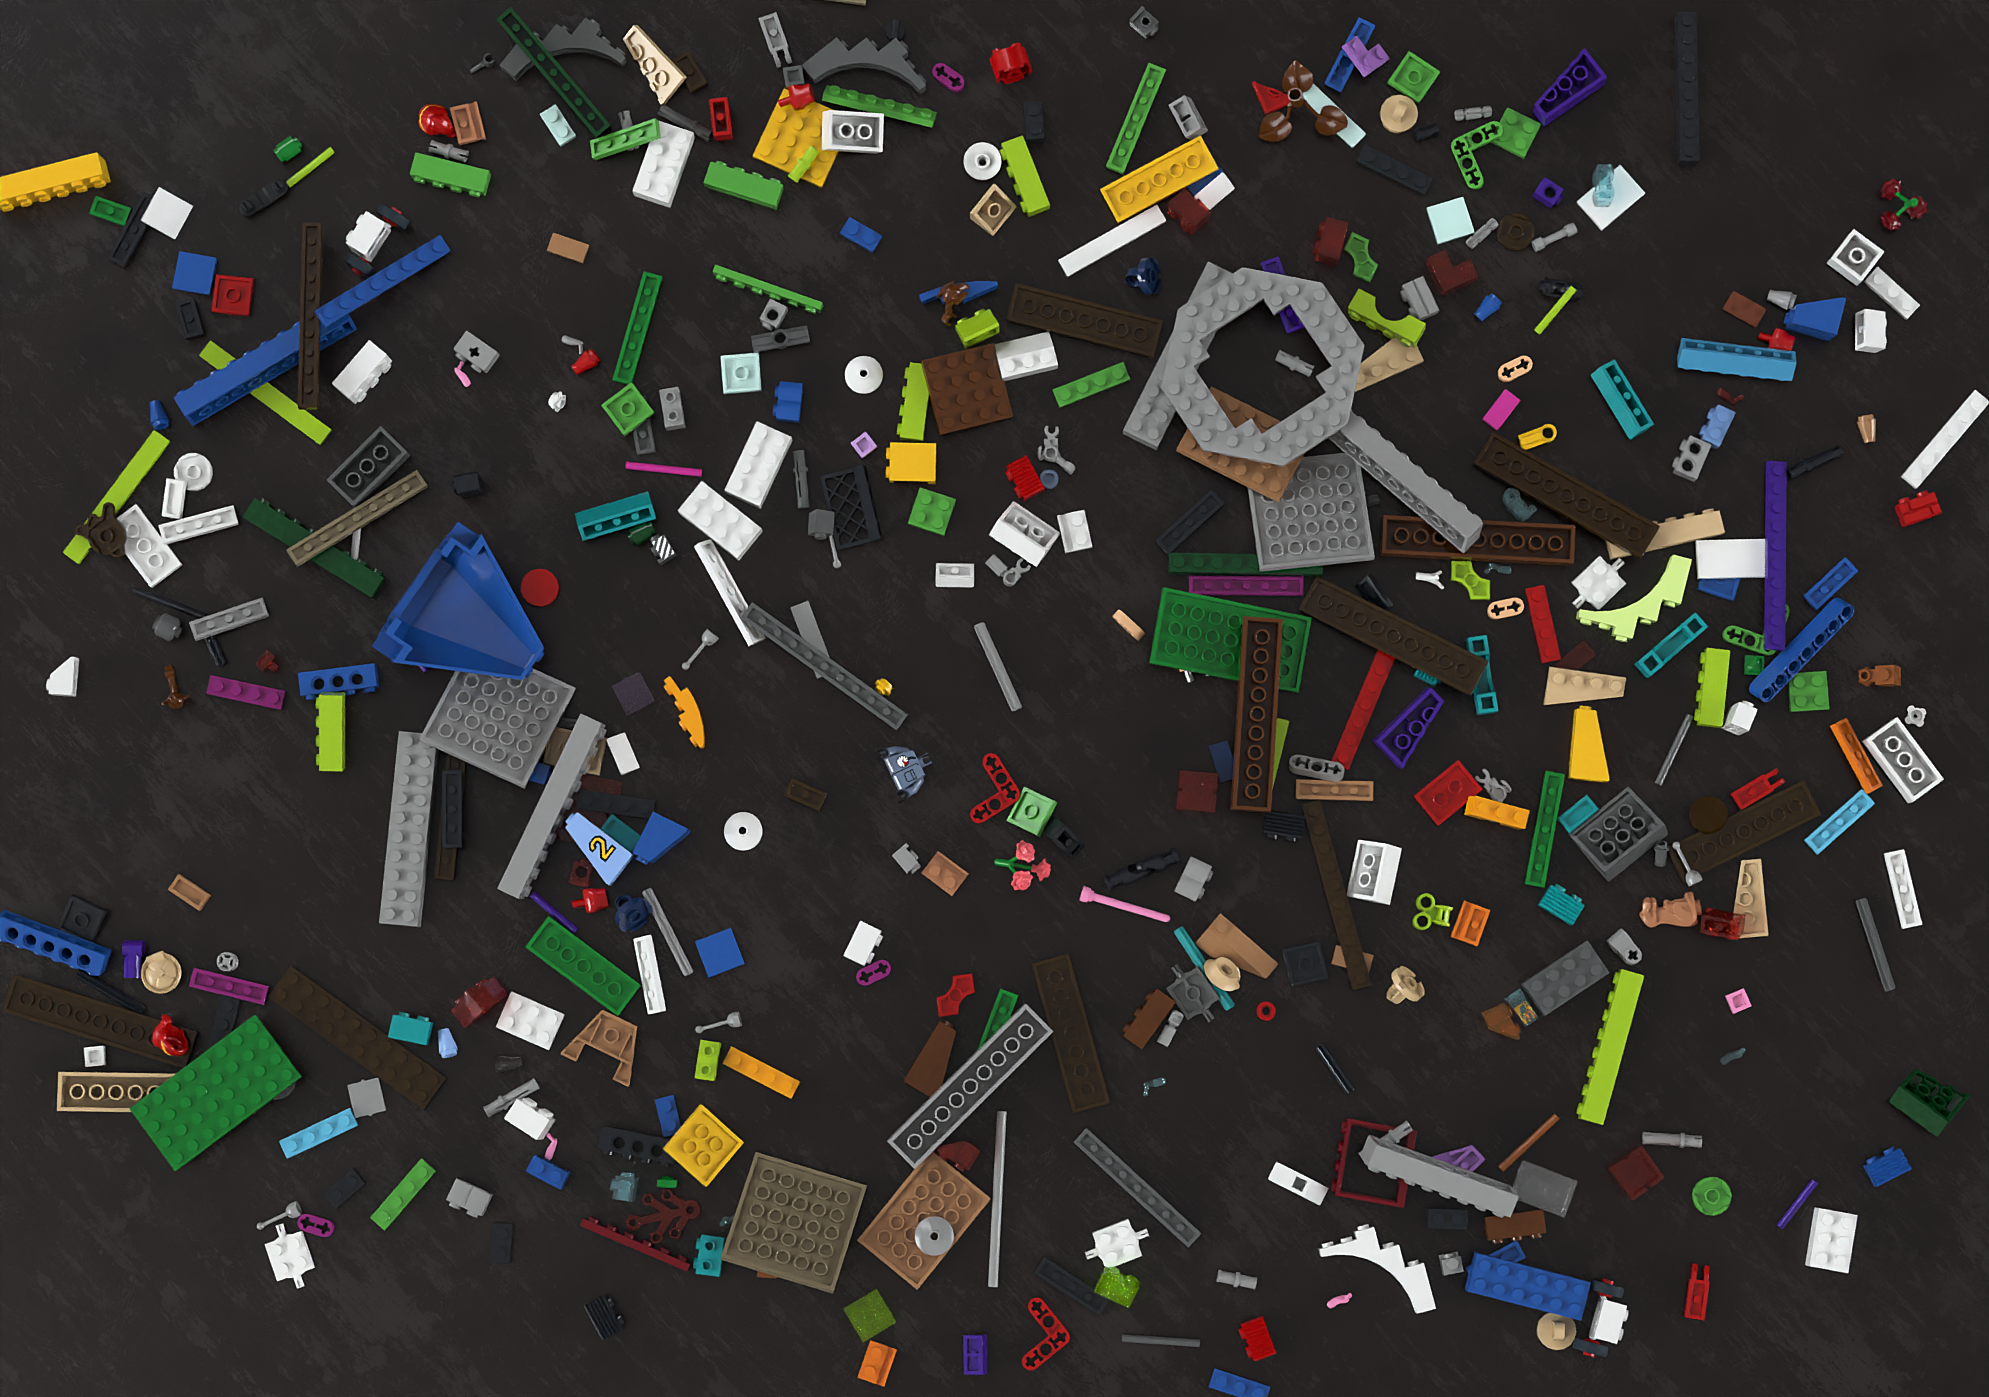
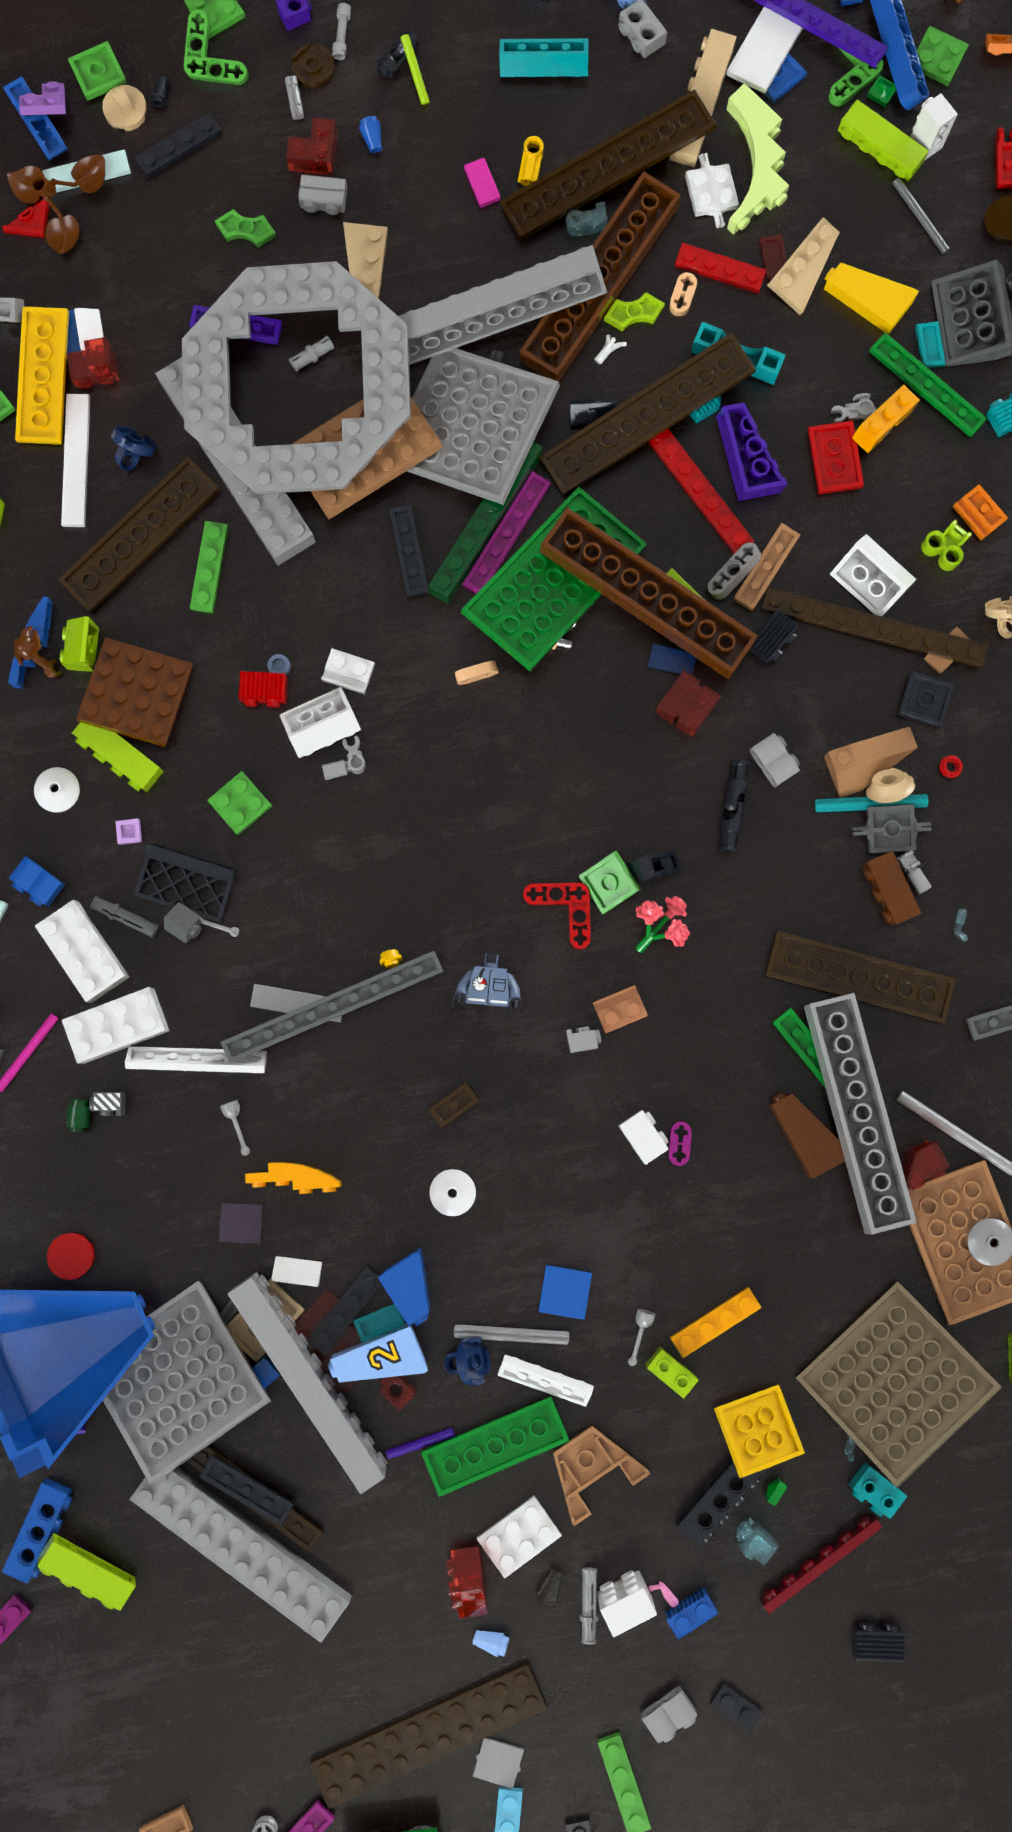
camera: 60 degrees left, 0 degrees up
(410, 1029) = (454, 1673): teal brick -> none
(593, 899) = (432, 1394): red piece -> none
(615, 516) = (43, 1132): teal brick -> none
(666, 1214) = (807, 1512): clear red plant -> none
(668, 1115) = (704, 1447): blue plate -> none
(911, 462) = (176, 792): yellow panel -> none
(954, 575) = (319, 818): white slope -> none
(961, 987) = (756, 1083): red tile -> none
(997, 666) = (439, 830): light grey axle -> none
(1026, 356) = (140, 613): white slope -> none
(1052, 453) = (254, 647): light grey piece -> none
(1089, 895) = (728, 876): bright pink piece -> none
(1332, 236) = (210, 242): clear red brick -> none
(1406, 330) = (345, 225): lime arch -> none
(1450, 220) = (262, 120): light aqua tile -> none
(1473, 113) = (169, 36): light grey axle -> none
(1499, 568) = (640, 276): clear light blue piece -> none
(1512, 365) = (453, 145): light nougat beam -> none
(1671, 645) = (820, 173): teal arch -> none

